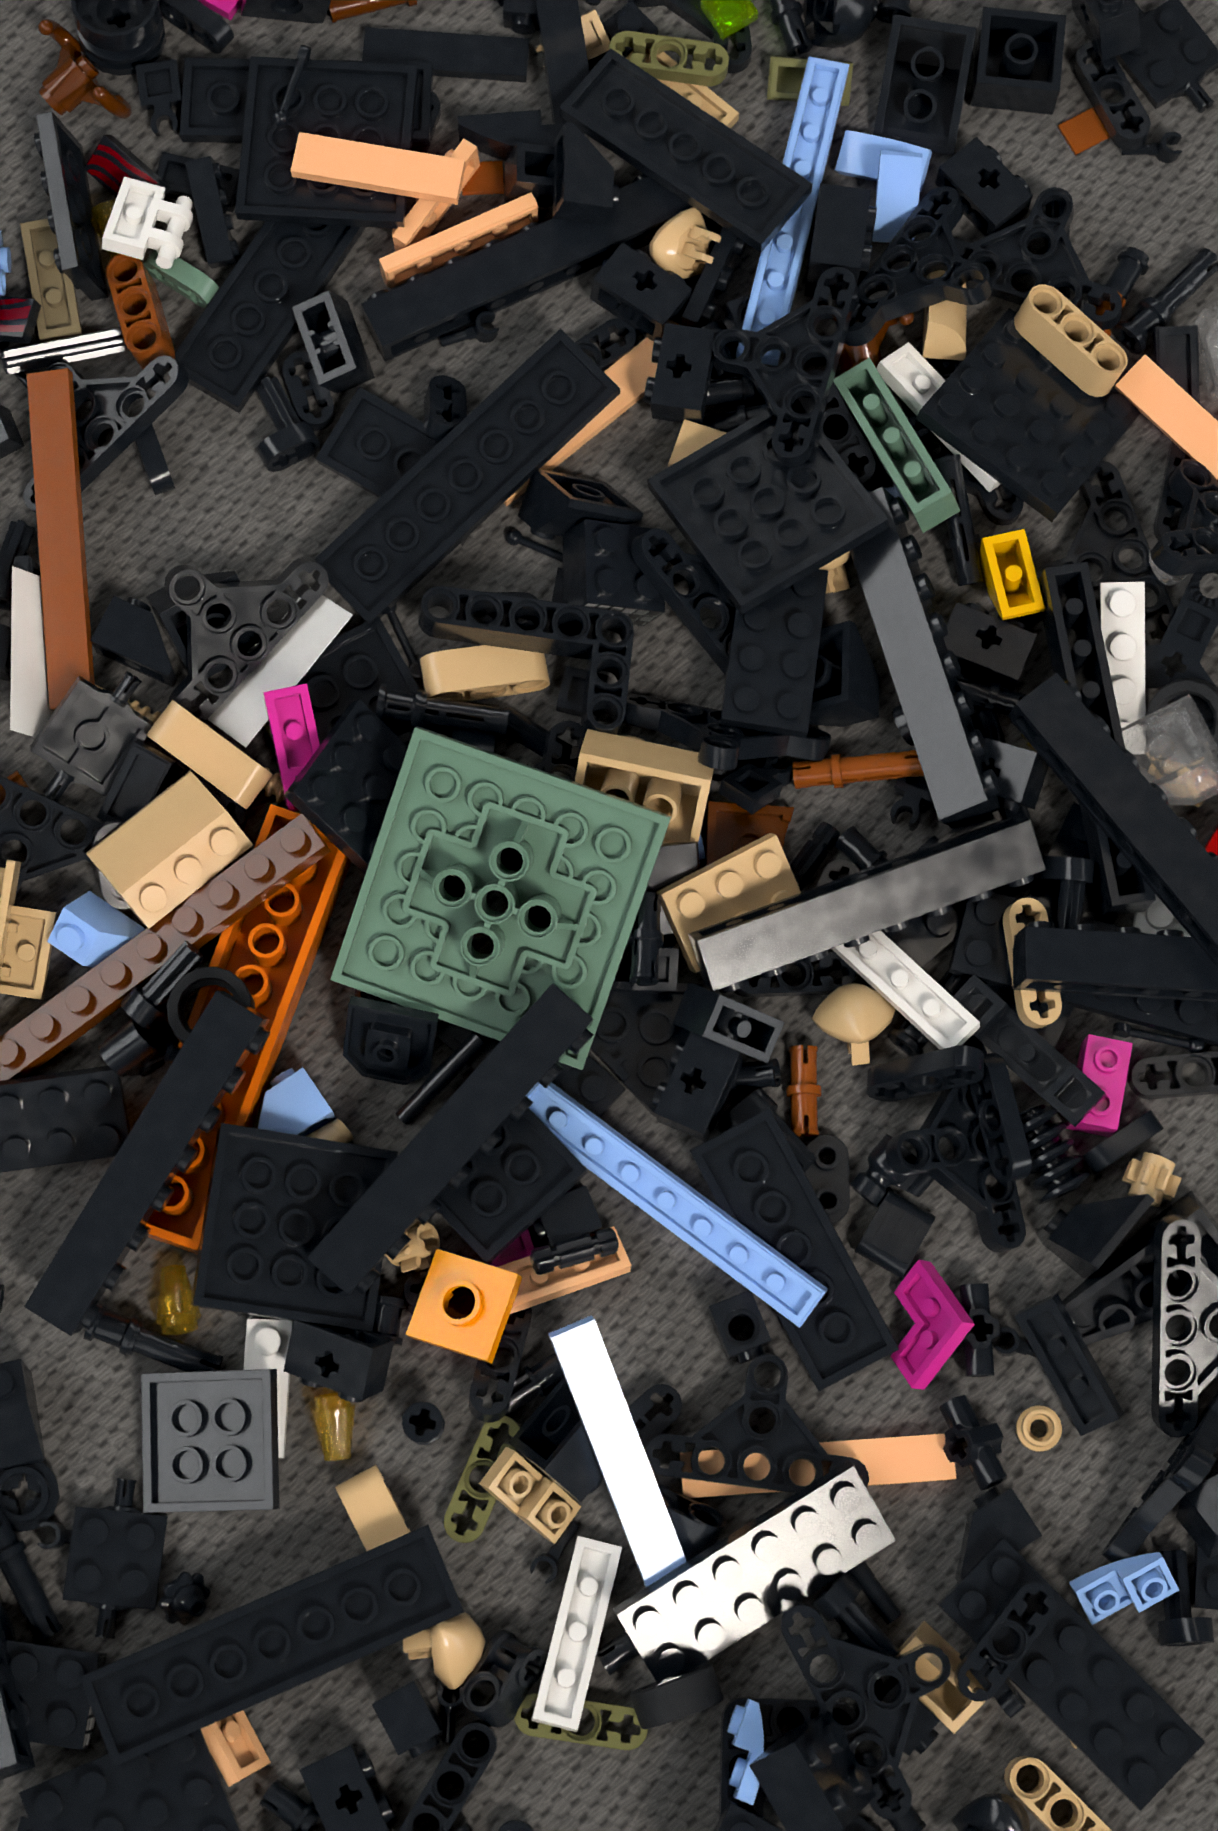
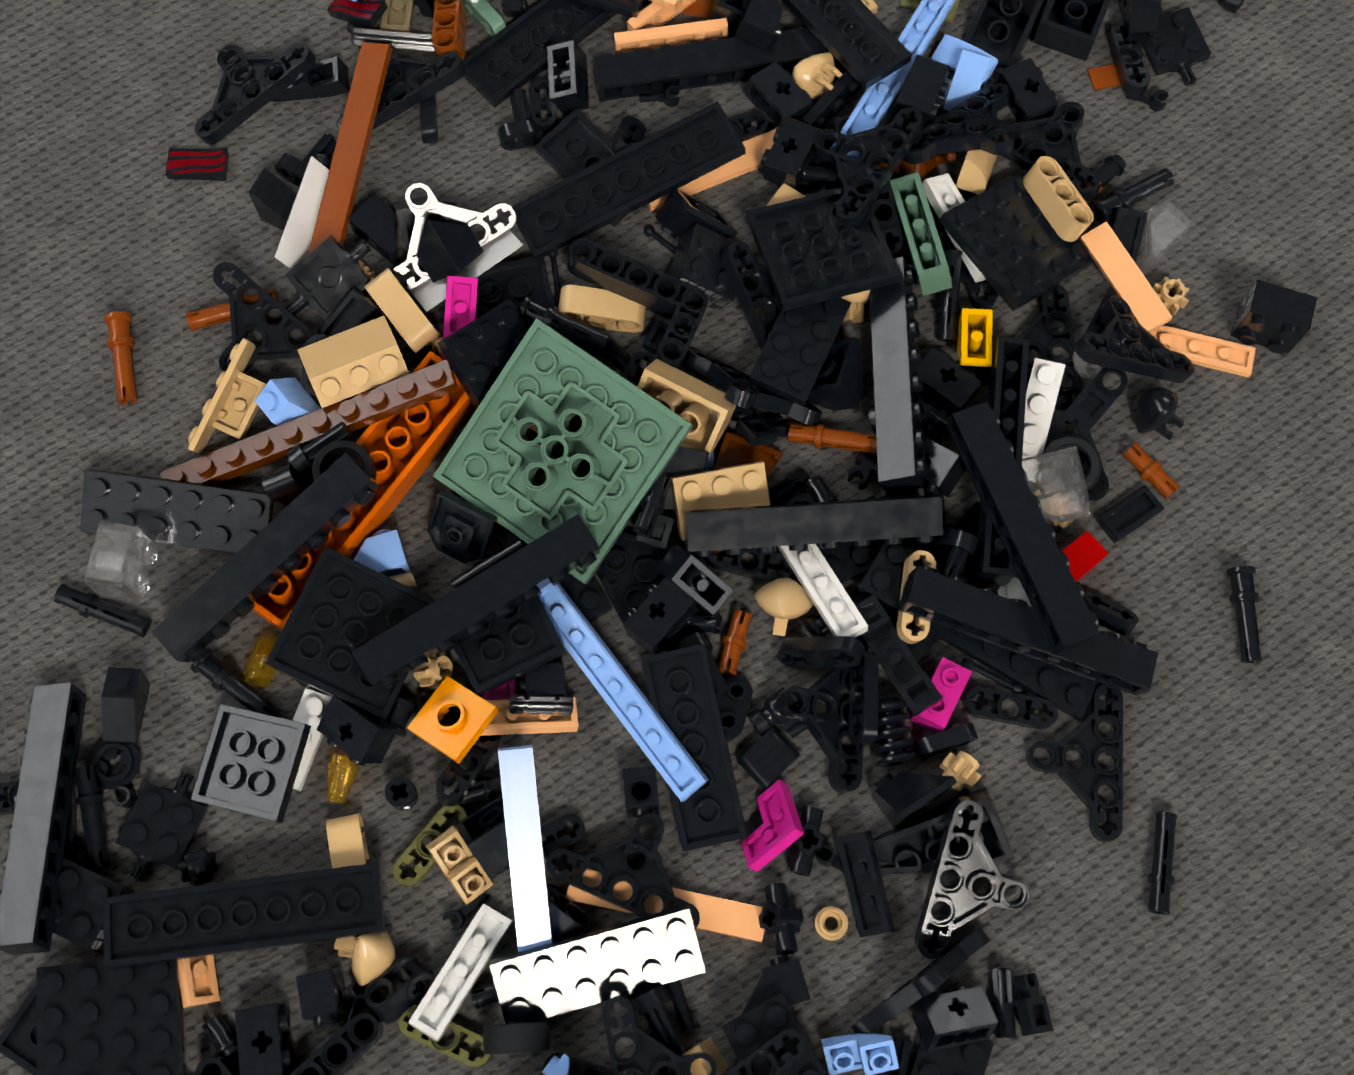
camera: 15 degrees right, 5 degrees down
(249, 651) = (447, 249): none -> black slope

